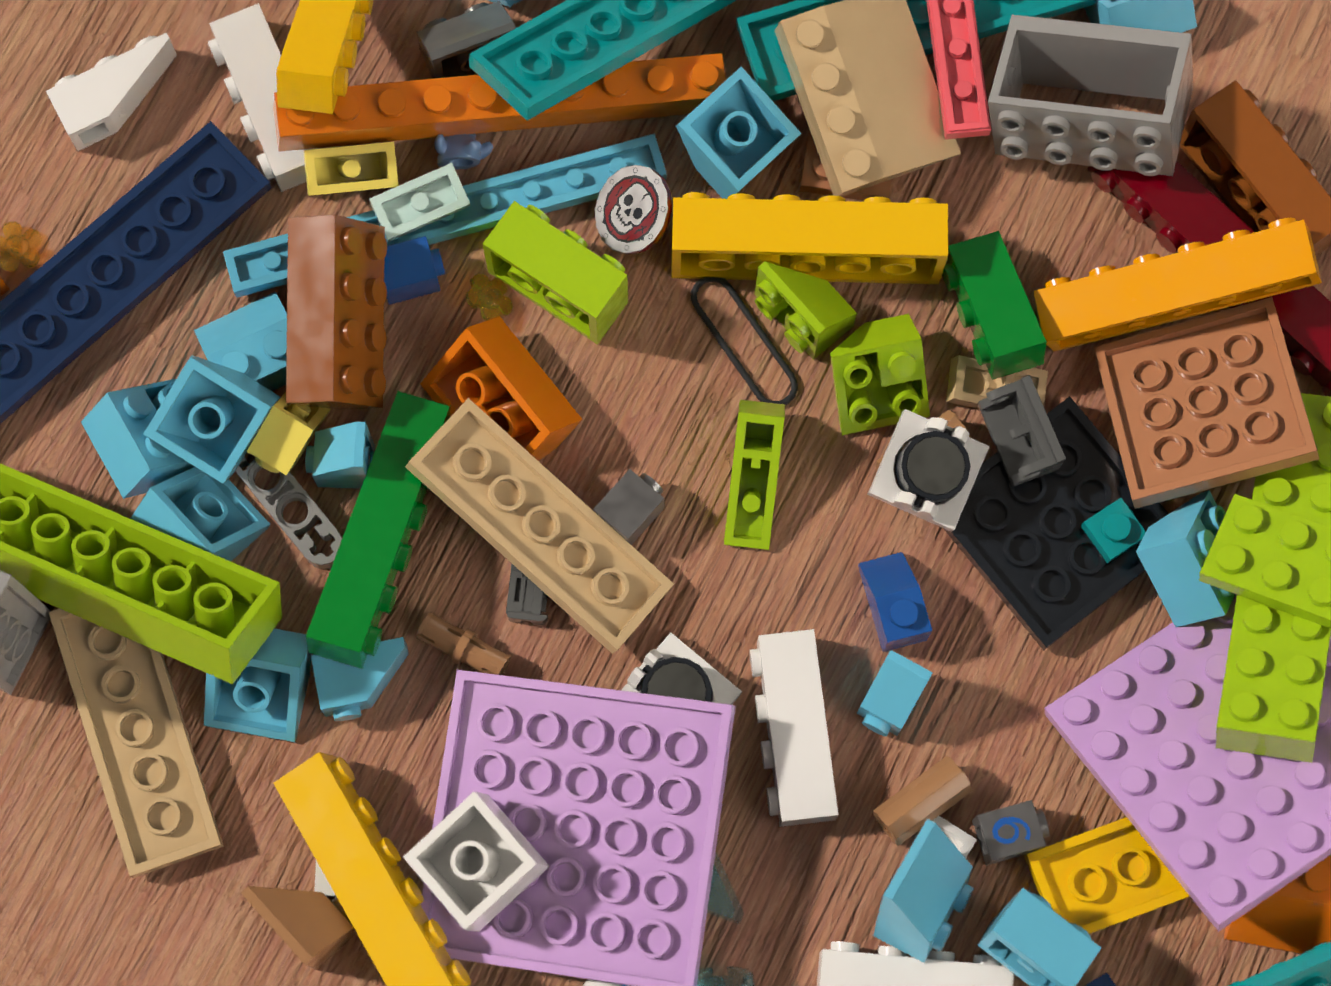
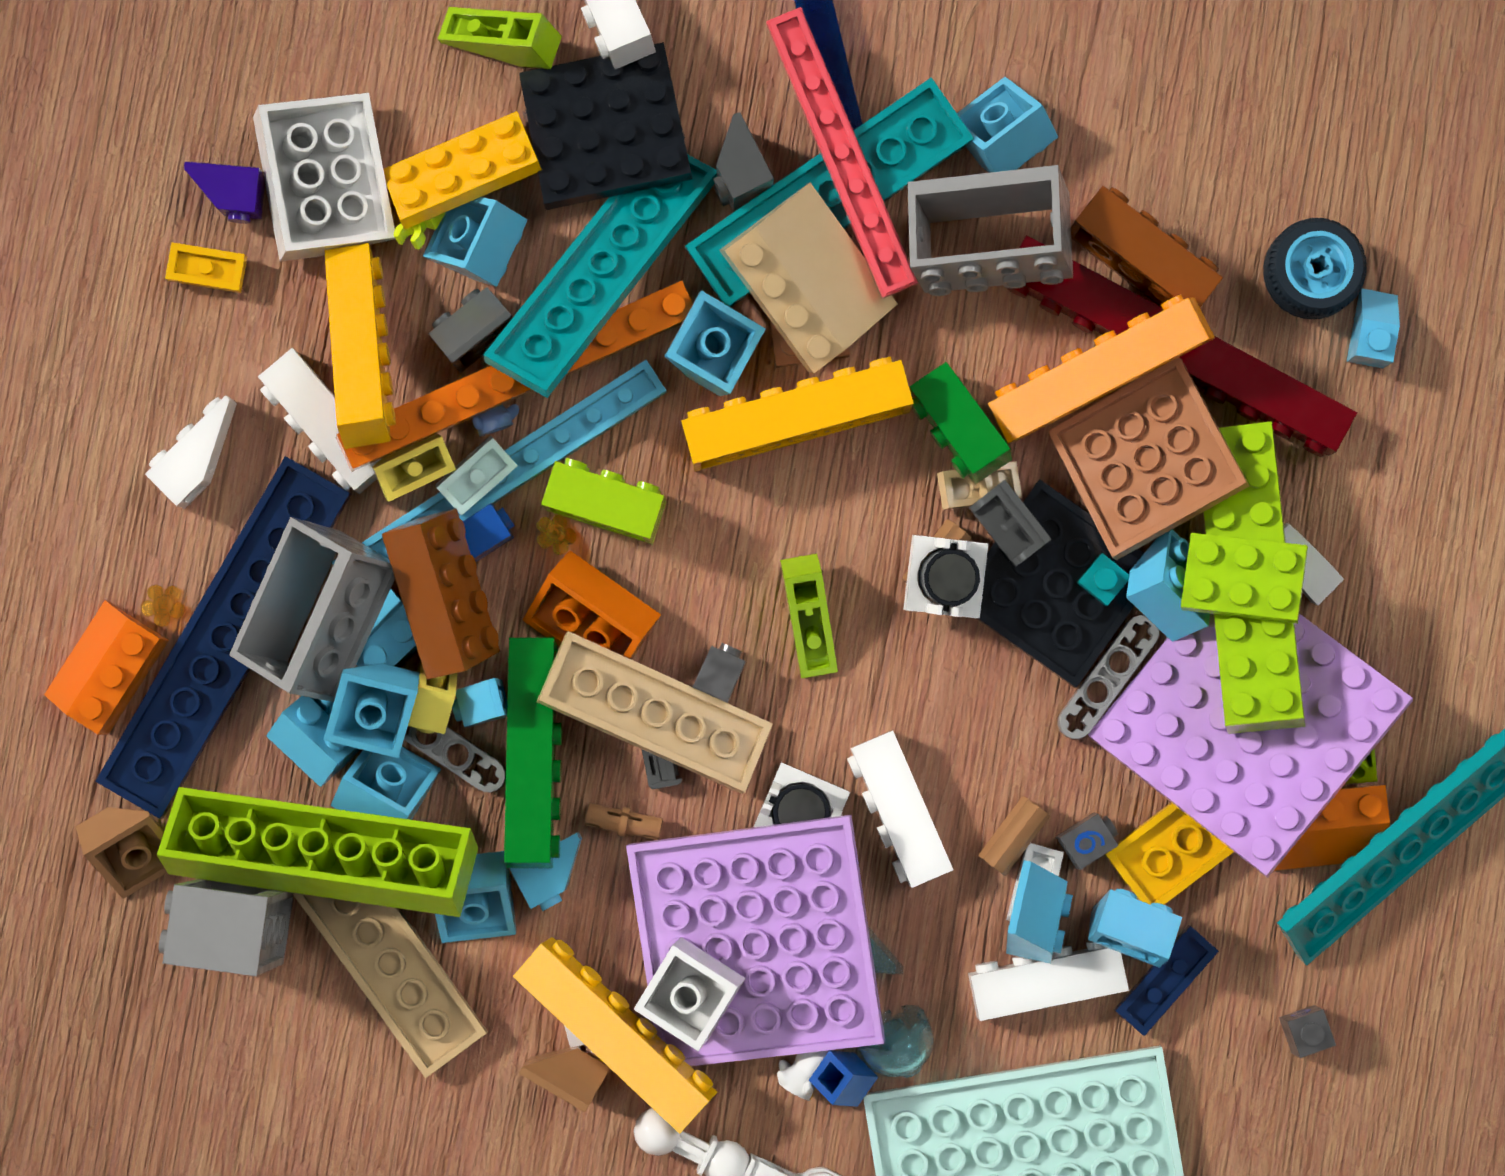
camera: 15 degrees left, 10 degrees up
(182, 285) = (338, 622): none -> light grey hose
(633, 209) = (649, 432): shield -> none
(794, 384) = (795, 549): black piece -> none
(804, 306) = (811, 468): lime slope -> none
(879, 375) = (885, 506): lime slope -> none
(893, 694) = (968, 763): medium azure slope -> none
(895, 601) = (947, 684): blue slope -> none
(1087, 649) = (1103, 673): none -> light grey beam

